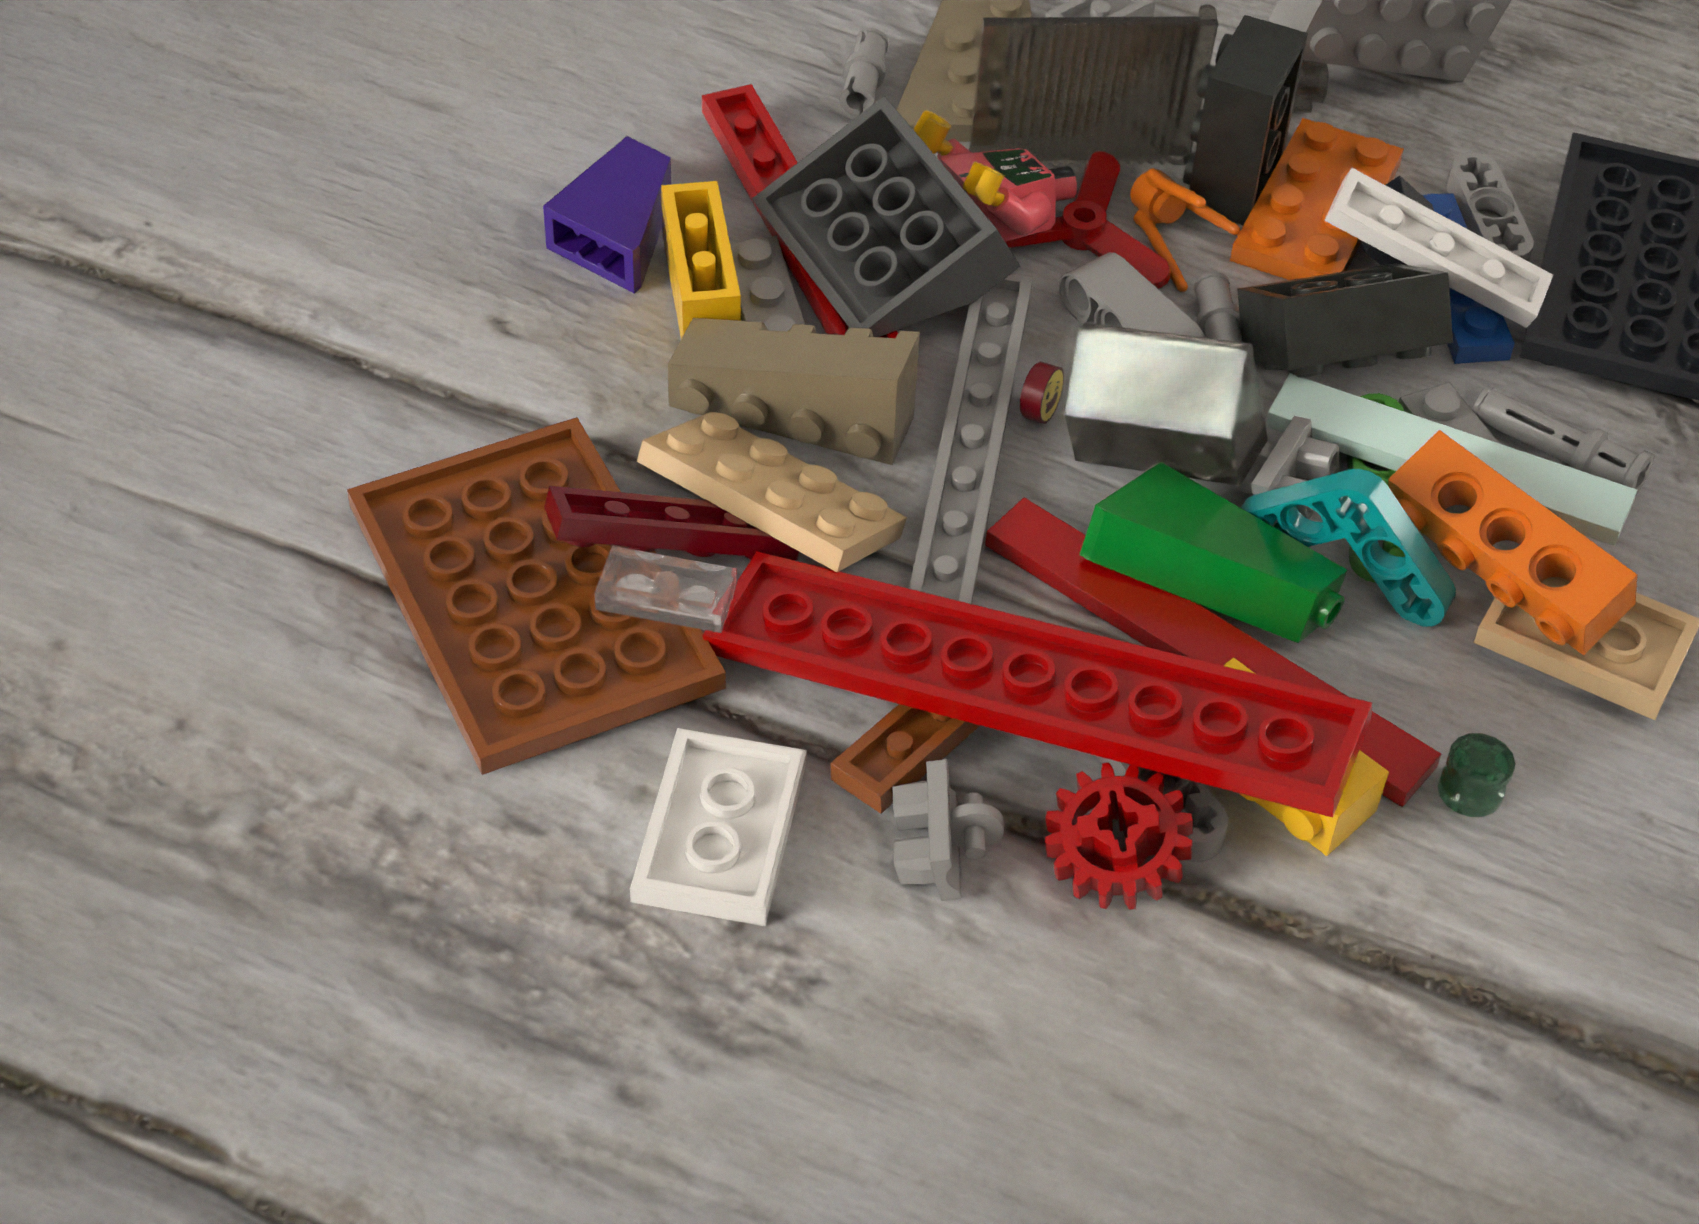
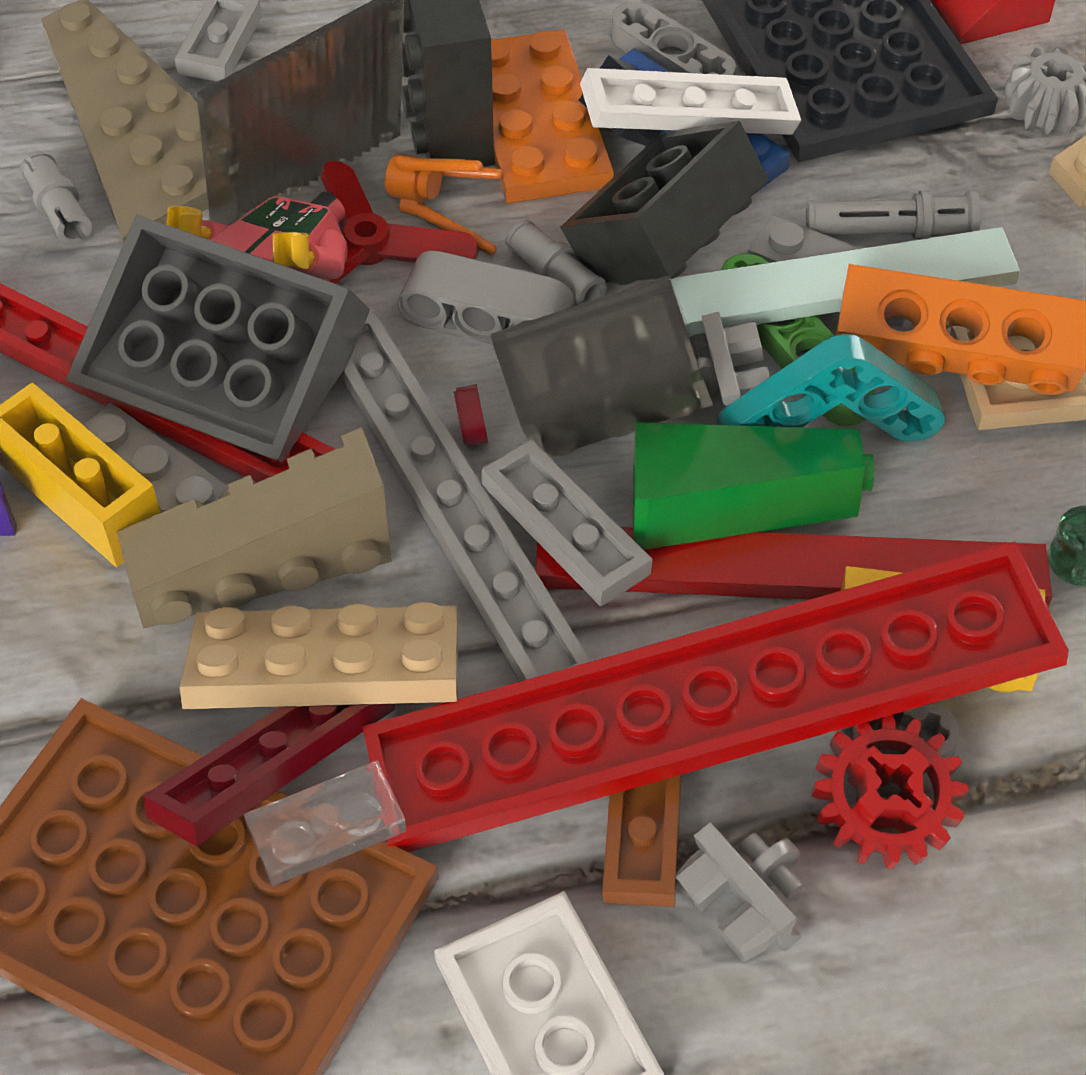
camera: 35 degrees left, 5 degrees up
(1039, 503) = (566, 522): none -> light grey plate

